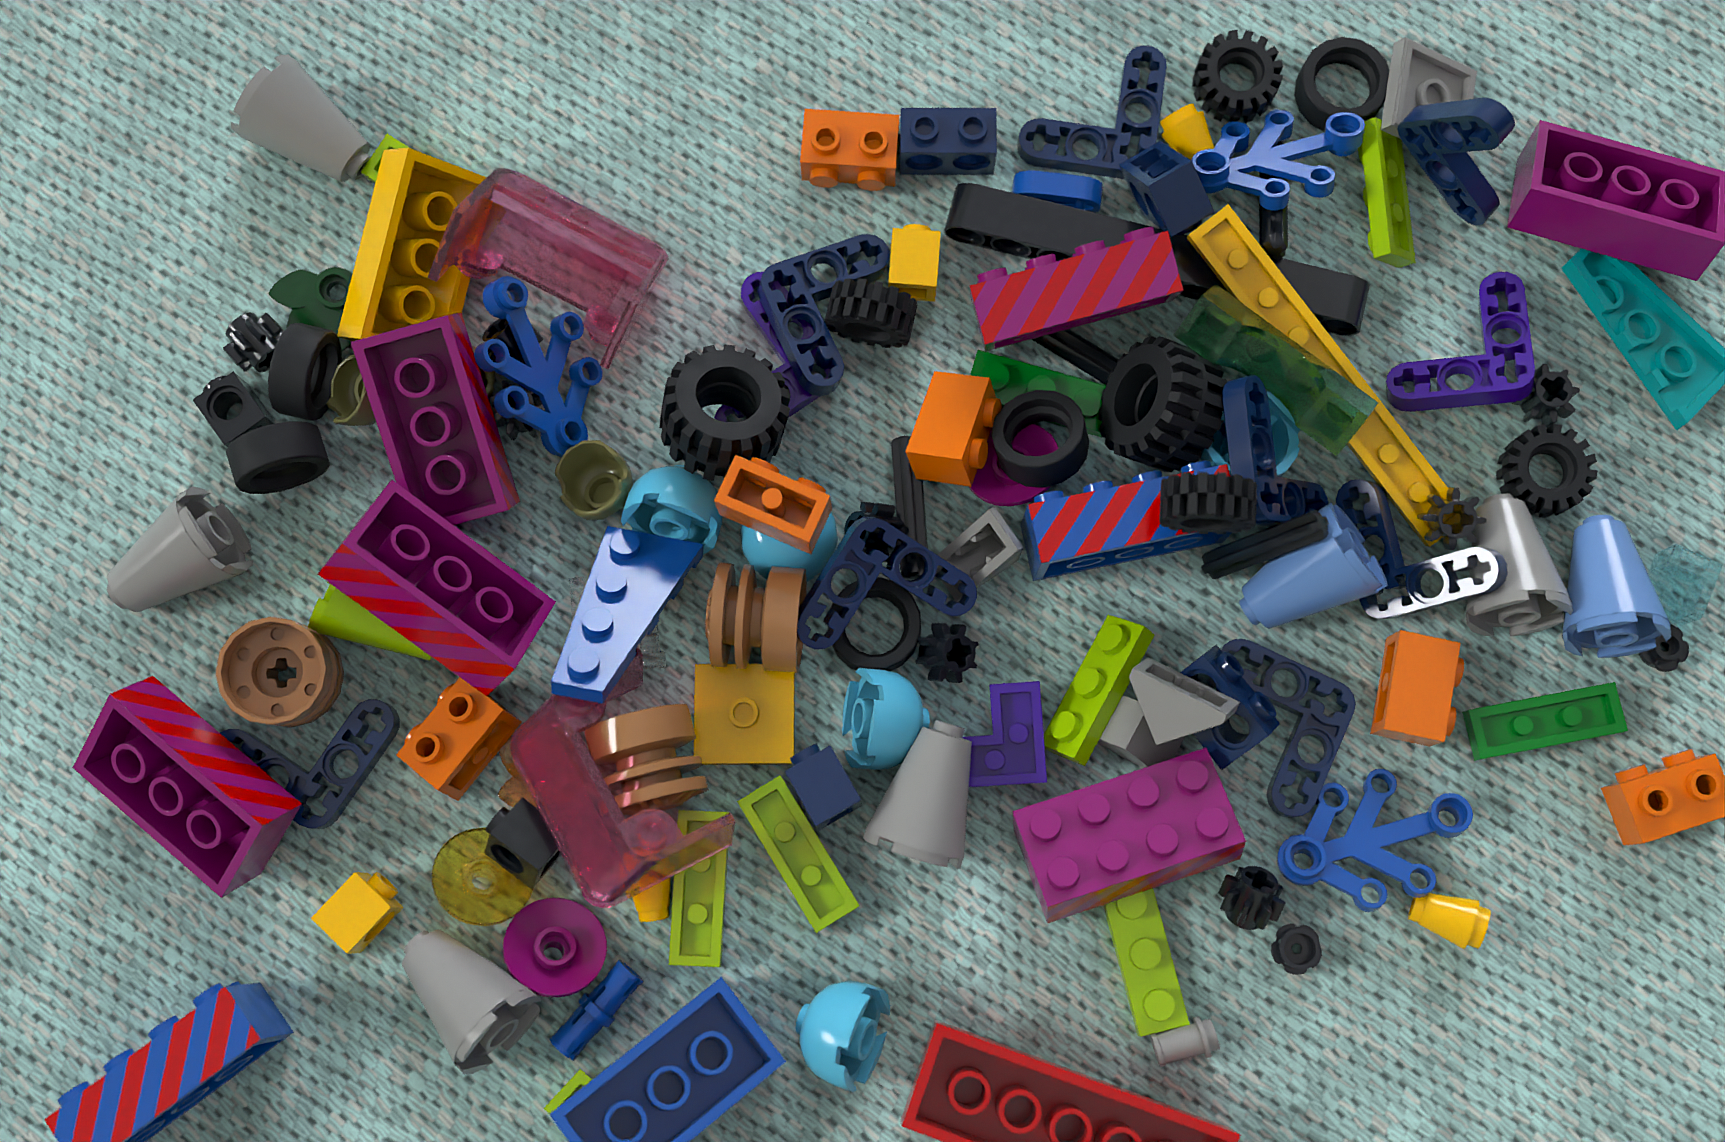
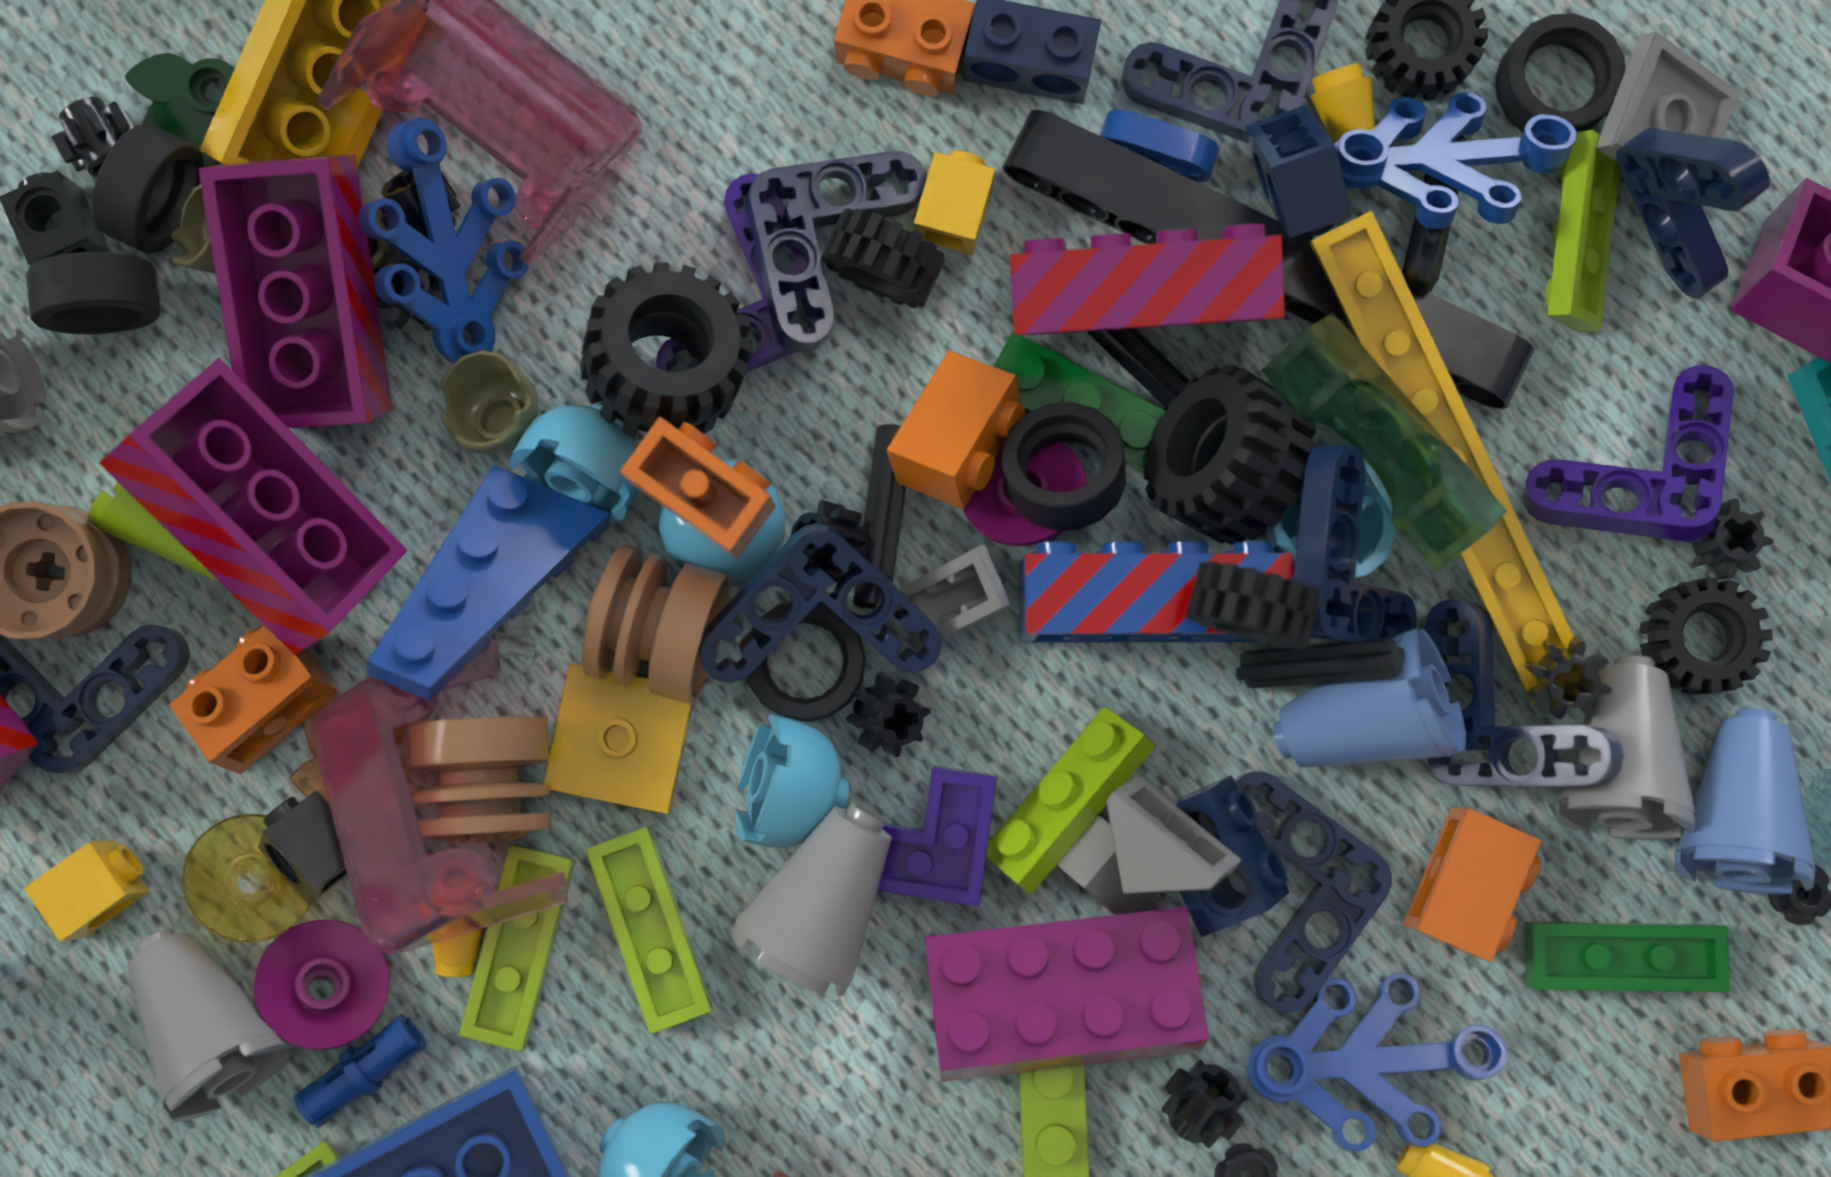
camera: 10 degrees right, 5 degrees up
(822, 785) = (692, 855): dark blue brick -> none

